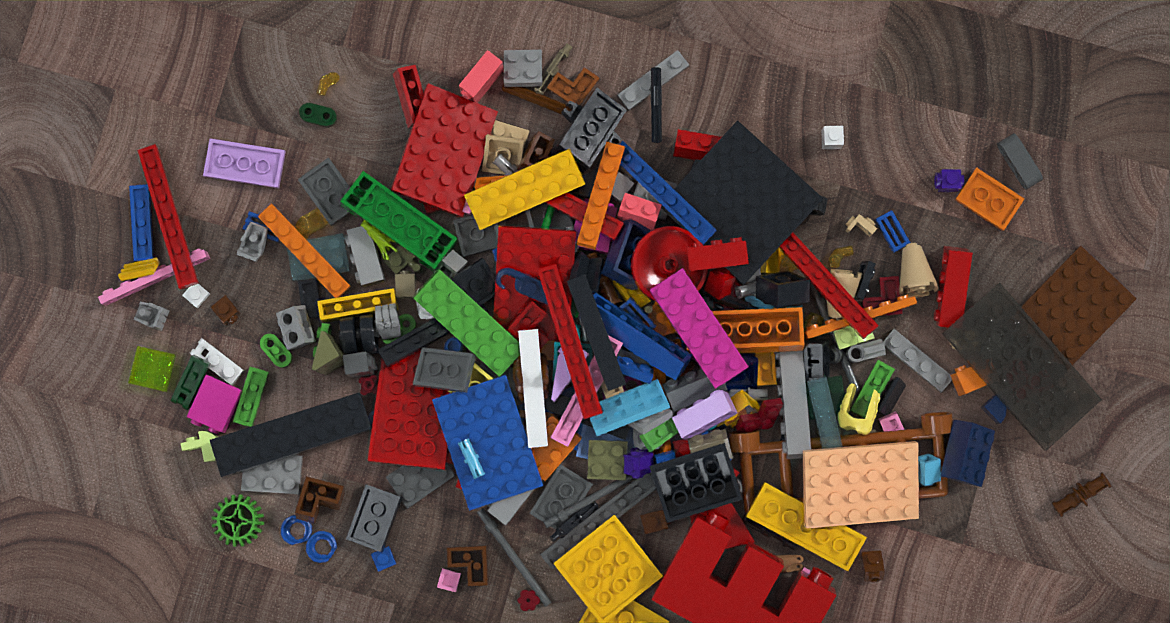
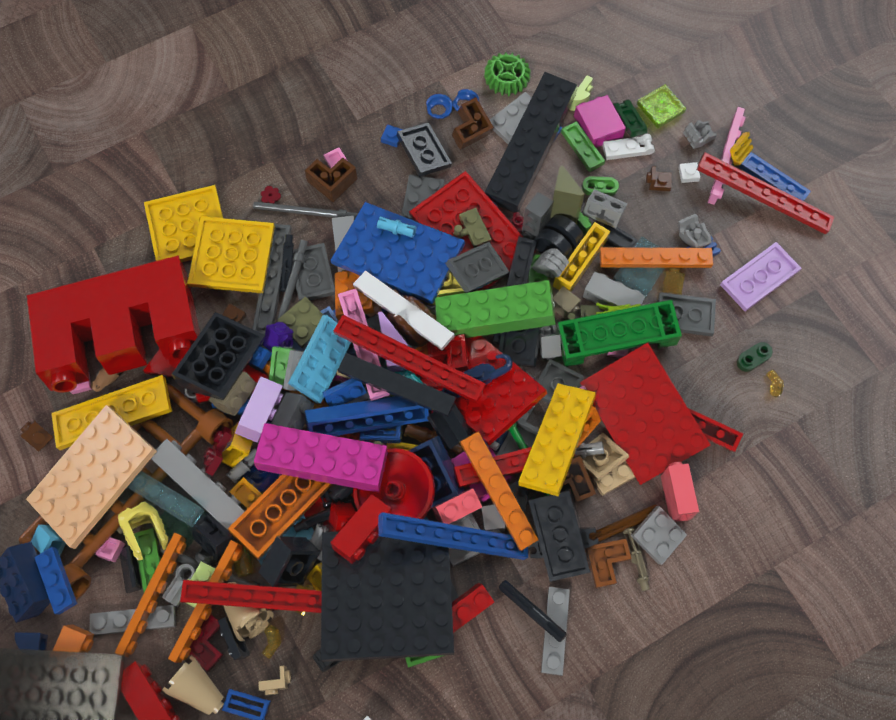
camera: 130 degrees right, 15 degrees down
(411, 407) = (473, 228): none -> olive plate
(883, 361) = (149, 599): none -> orange plate
(946, 427) = (55, 580): none -> blue plate

